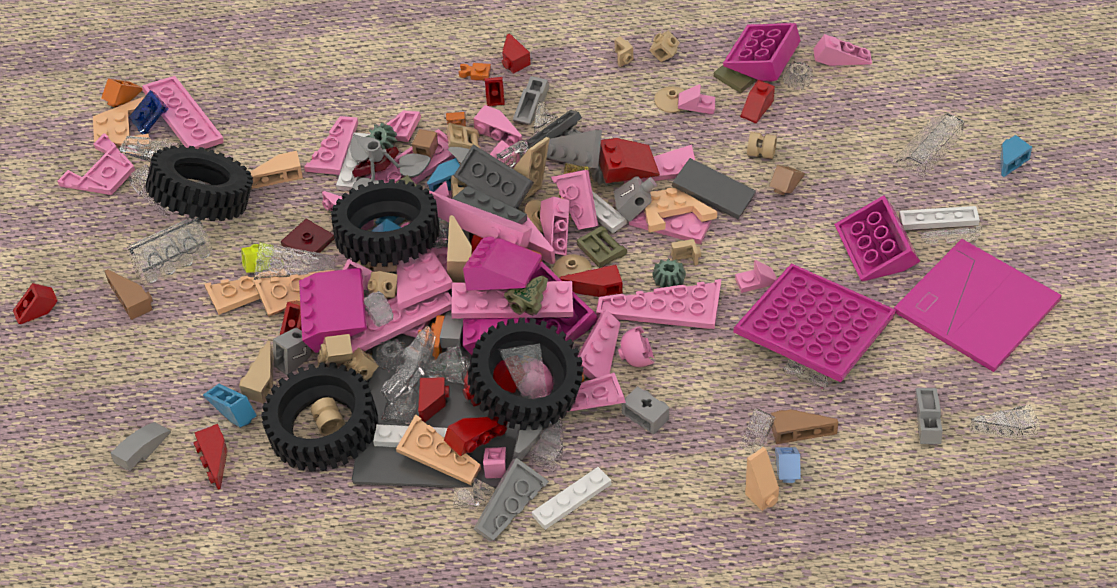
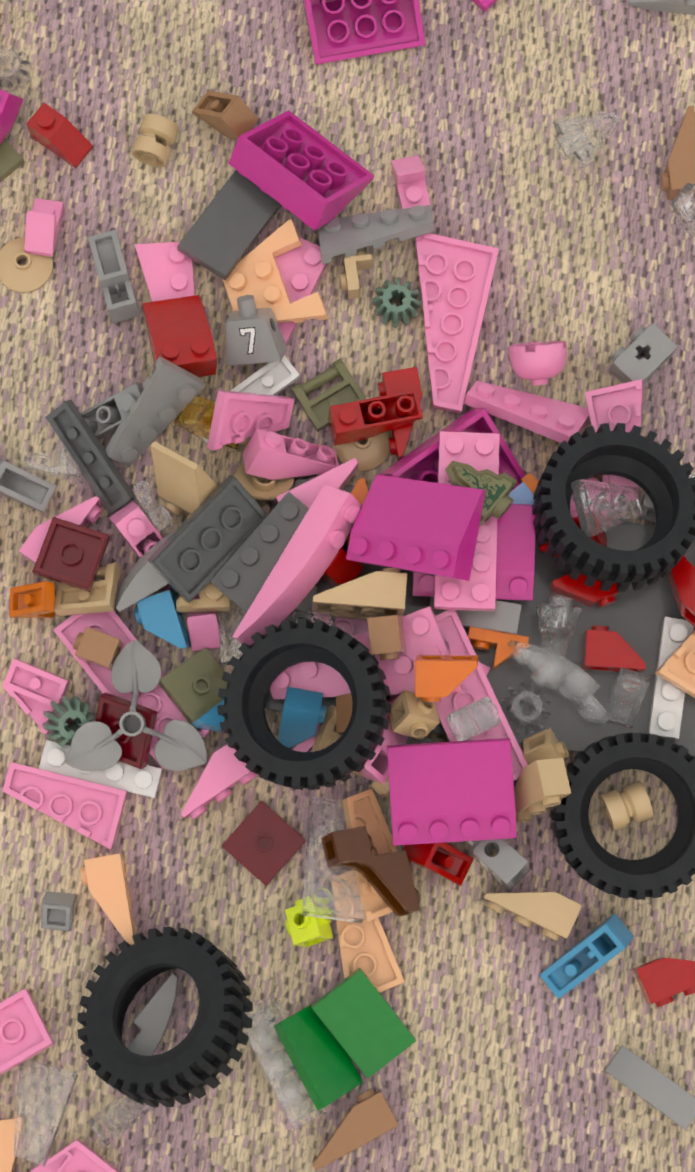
camera: 90 degrees left, 30 degrees up
(174, 268) = (317, 1057): none -> green tile
(192, 291) = (363, 1023): none -> green tile
(269, 150) = (58, 911): none -> light grey slope
(284, 287) = (387, 873): none -> reddish brown arch
(405, 284) = (440, 674): none -> orange slope
(430, 257) = (386, 636): none -> medium nougat brick
(482, 124) = (71, 554): none -> dark red plate
(582, 255) = (372, 416): none -> red slope
(669, 136) = (114, 276): none -> light grey slope
(717, 254) = (362, 230): none -> light grey wing
(754, 214) = (299, 169): none -> dark pink slope
(815, 322) = (508, 113): dark pink tile -> none

